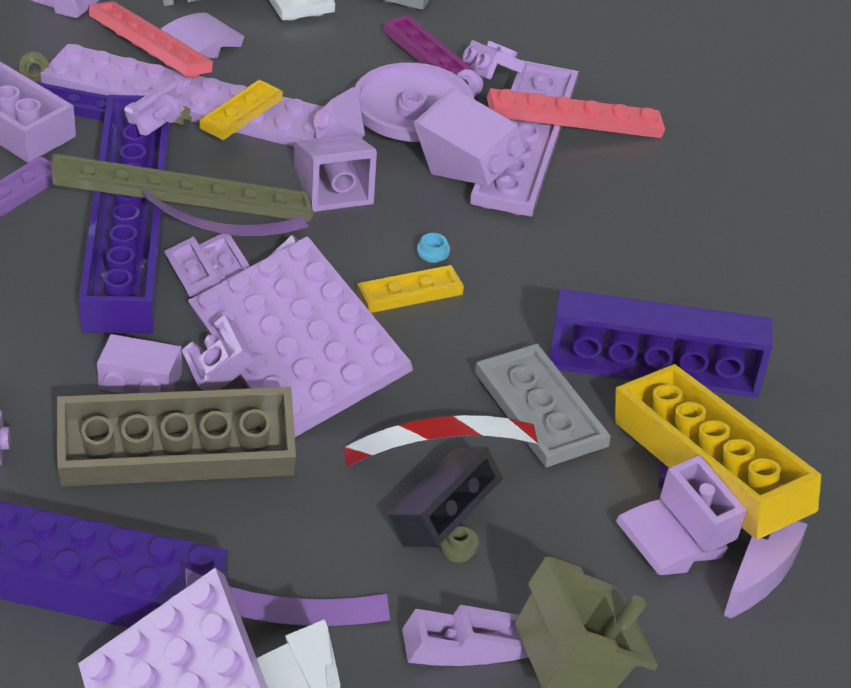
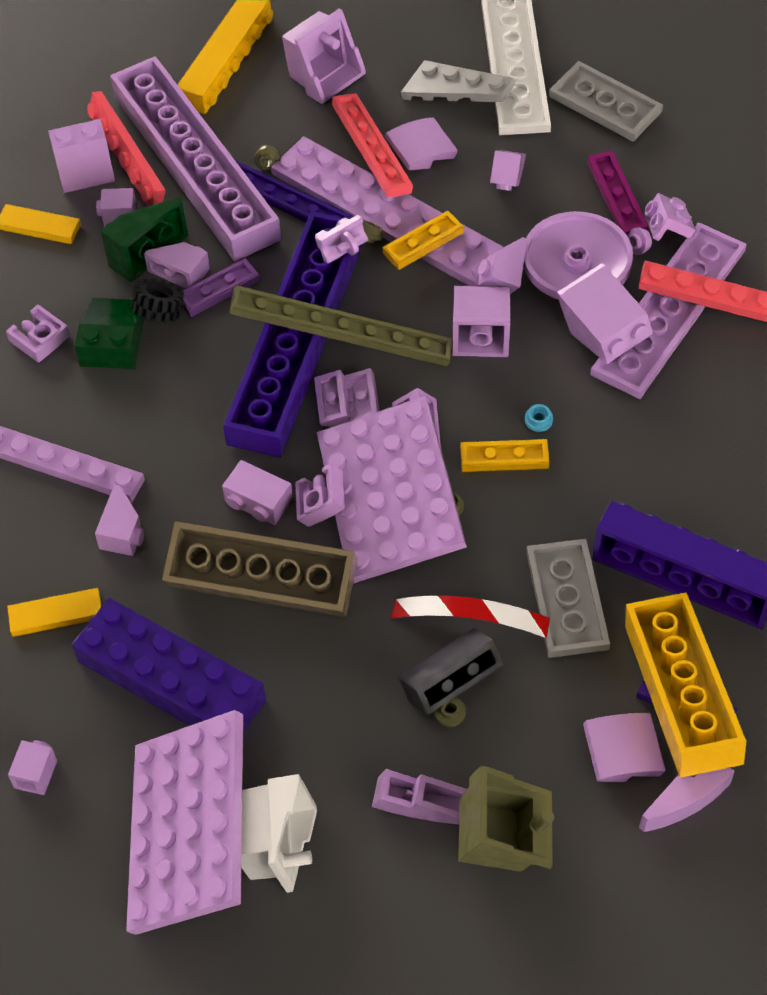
camera: 25 degrees right, 15 degrees up
(231, 229) = (391, 369): medium lavender sticker -> none
(305, 40) = (507, 169): none -> lavender slope
(306, 611) = (303, 739): medium lavender sticker -> none
(703, 504) = (649, 733): lavender brick -> none

